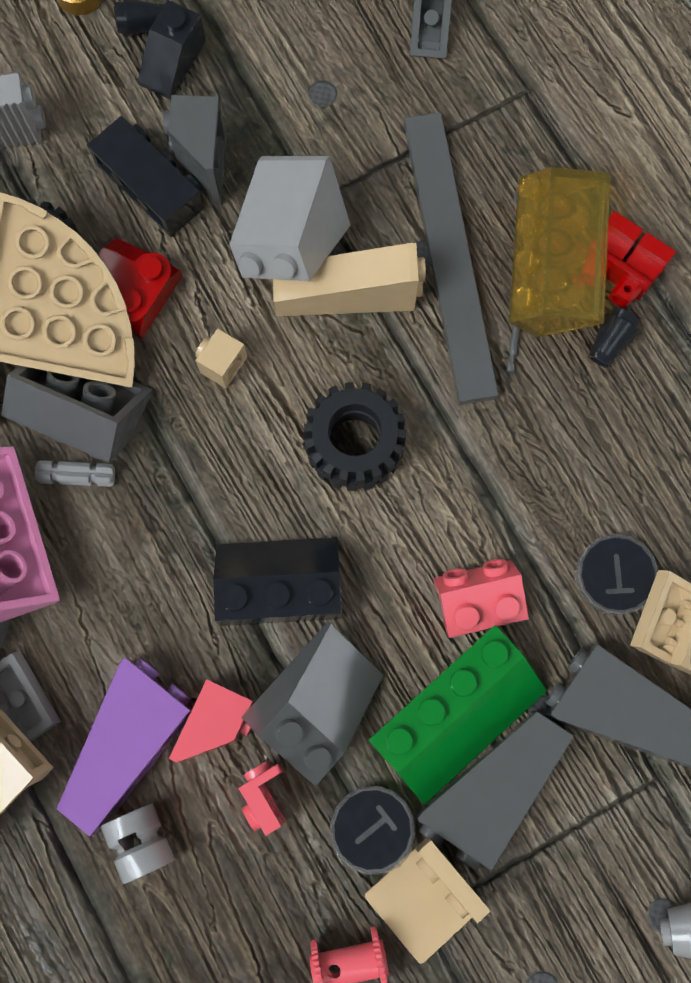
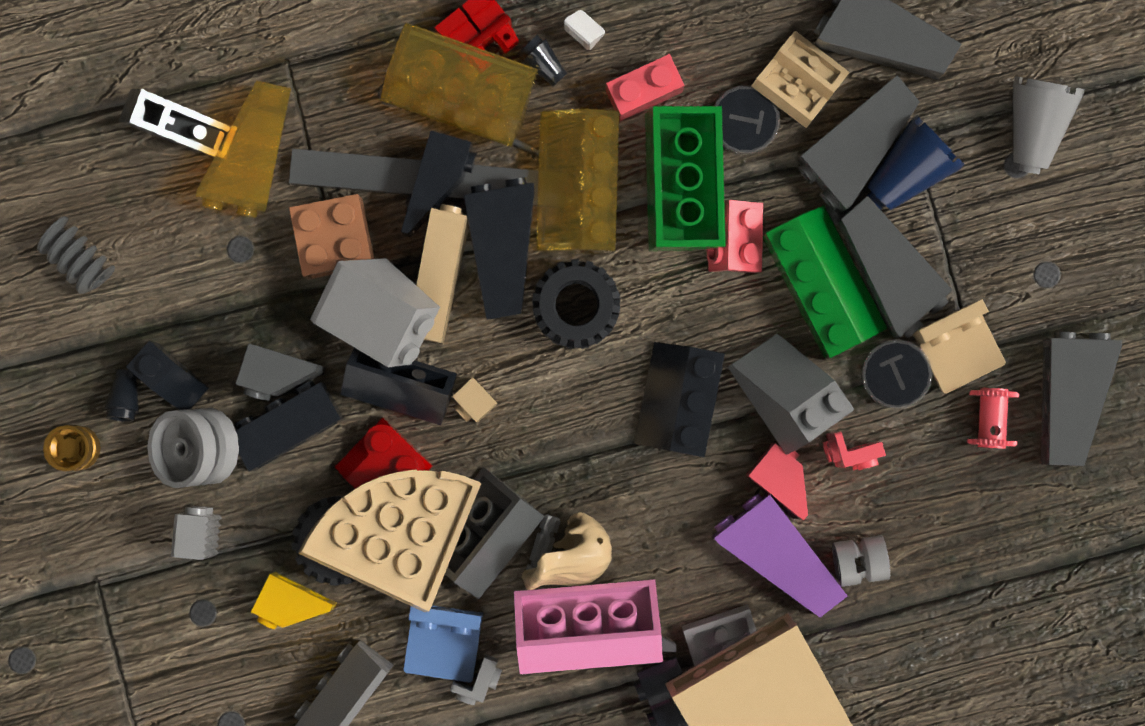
camera: 75 degrees left, 10 degrees up
(60, 513) = (582, 561): none -> tan piece
(98, 82) = (193, 447): none -> light grey wheel
(215, 284) = (406, 389): none -> black brick
(365, 166) = (330, 233): none -> nougat piece
(400, 340) = (501, 240): none -> black slope
(423, 67) = (247, 158): none -> clear yellow slope
(454, 255) = (440, 173): none -> black slope
(492, 403) = (578, 181): none -> clear yellow slope
(531, 519) = (685, 178): none -> green slope
(618, 450) = (644, 87): none -> coral brick
(625, 782) = (912, 166): none -> dark blue cone
(661, 372) = (583, 29): none -> white slope

